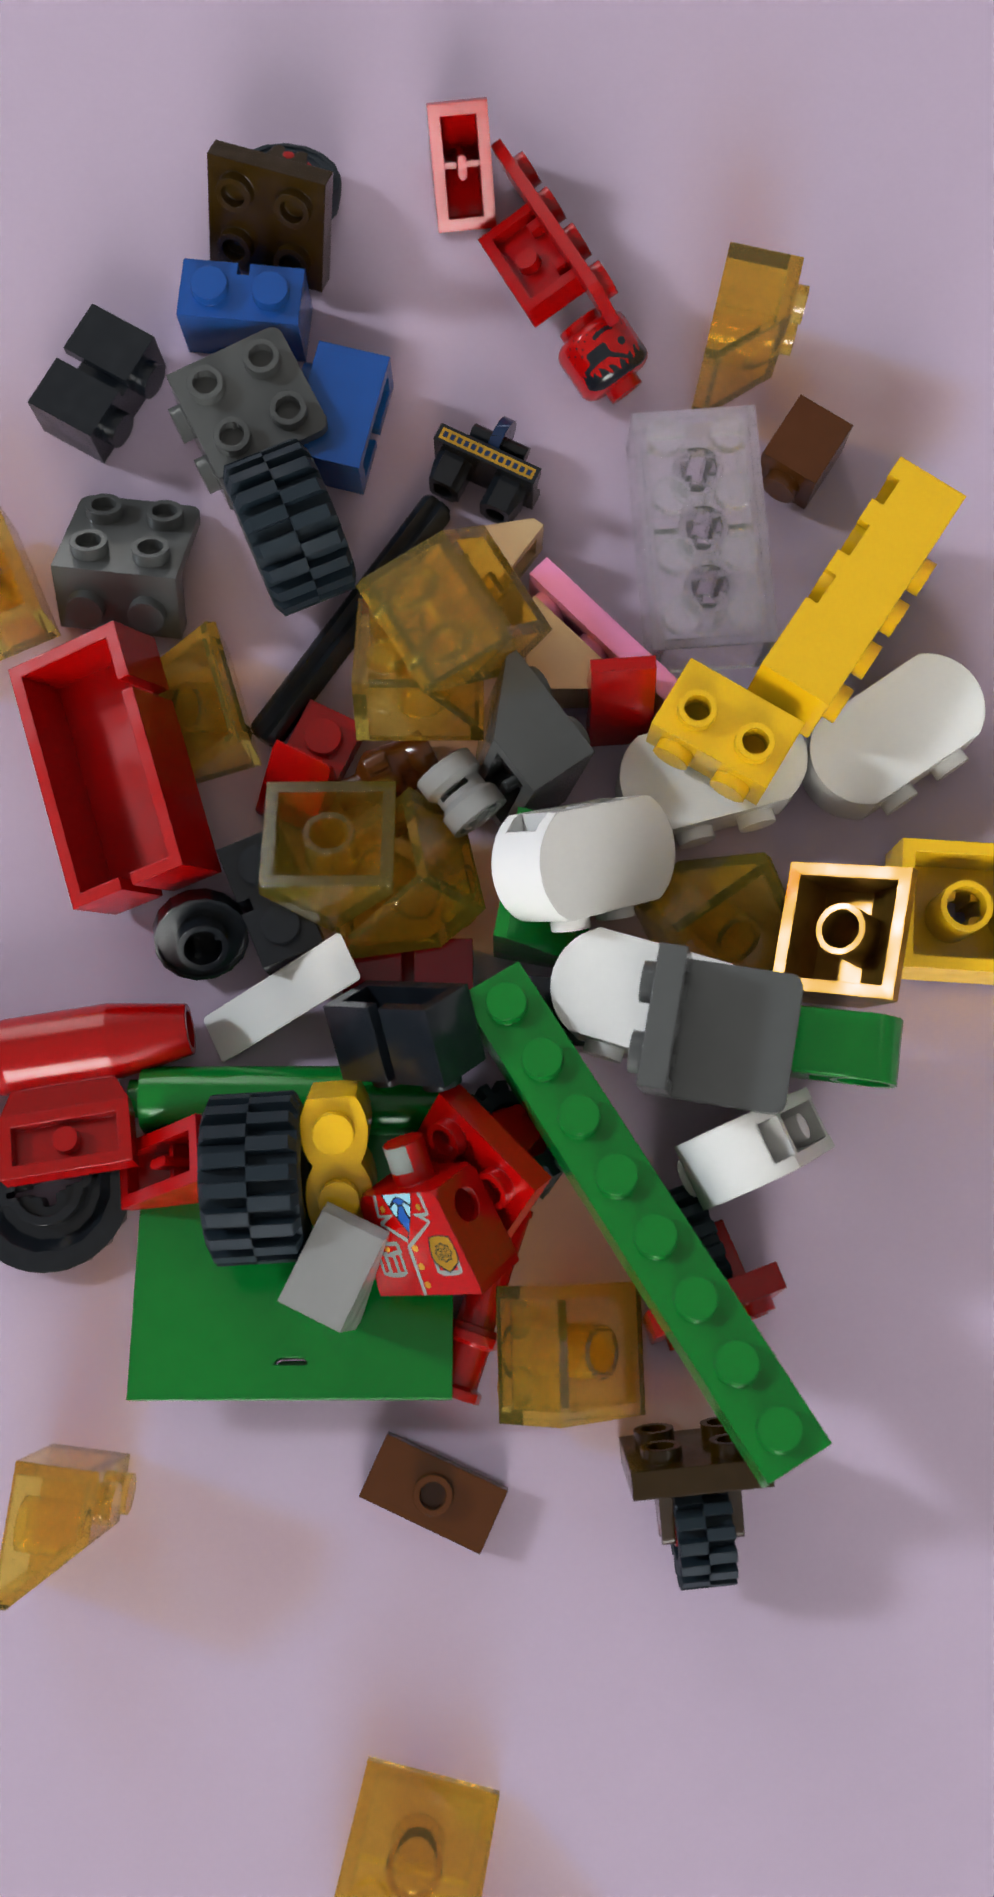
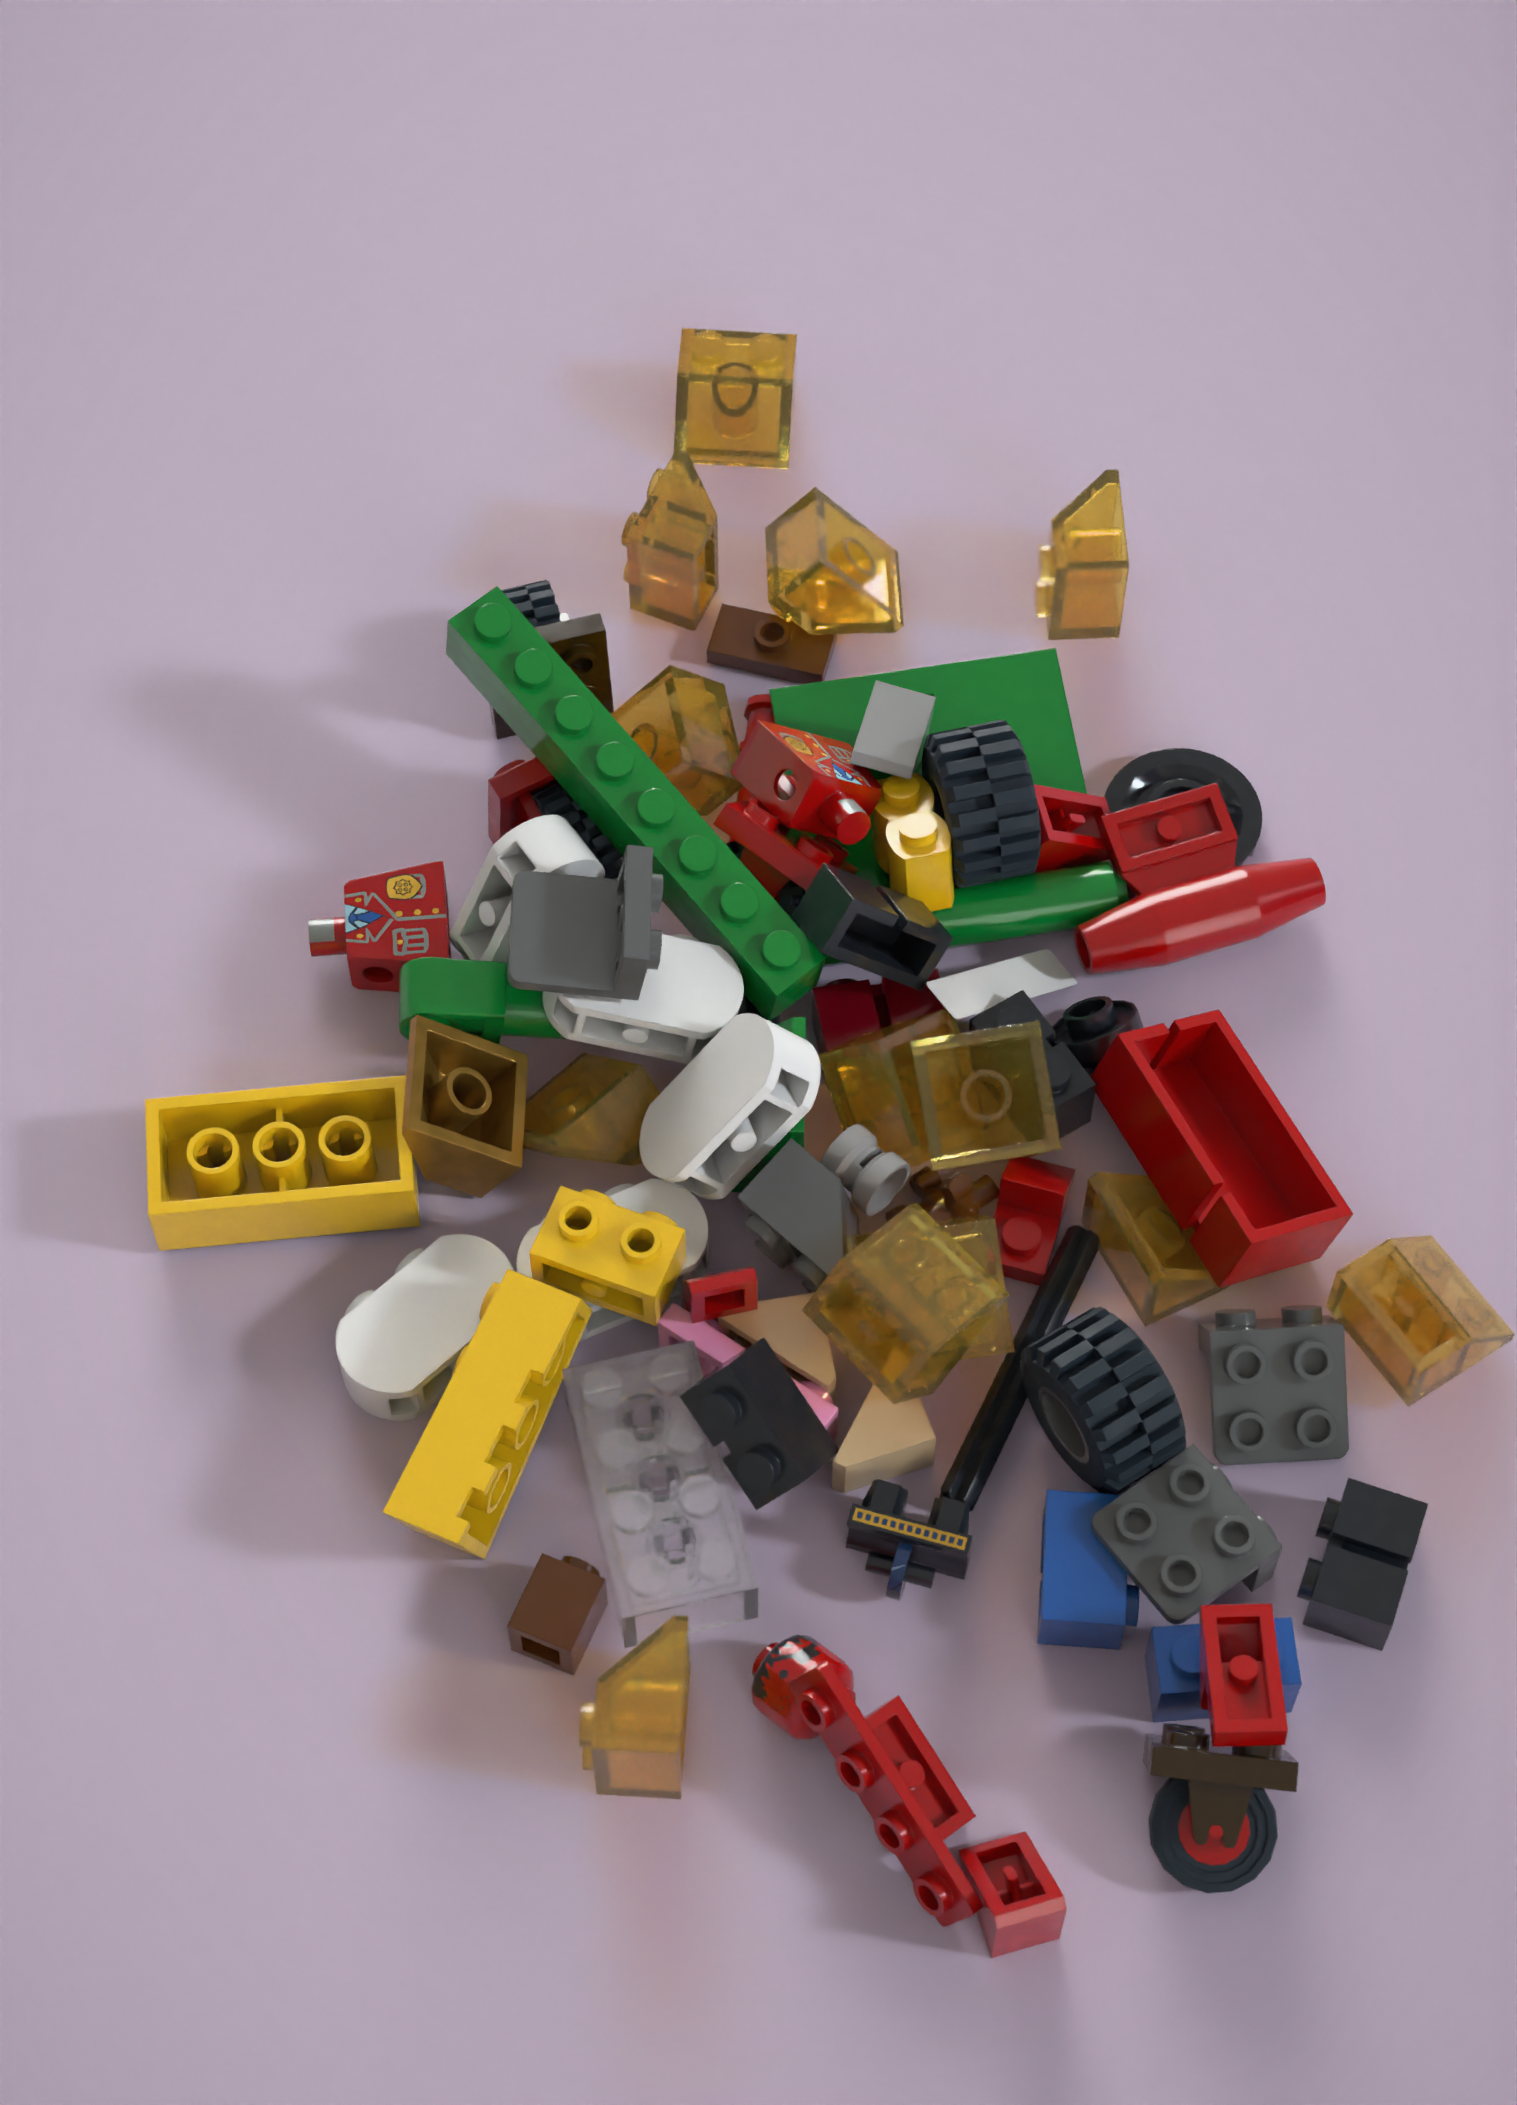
camera: 170 degrees right, 20 degrees down
(234, 225) = (1241, 1675): none -> red slope
(351, 1565) = (831, 571): none -> clear yellow slope
(524, 1622) = (673, 547): none -> clear yellow slope
(606, 555) = (762, 1421): none -> black piece
(888, 1177) = (387, 924): none -> red torso

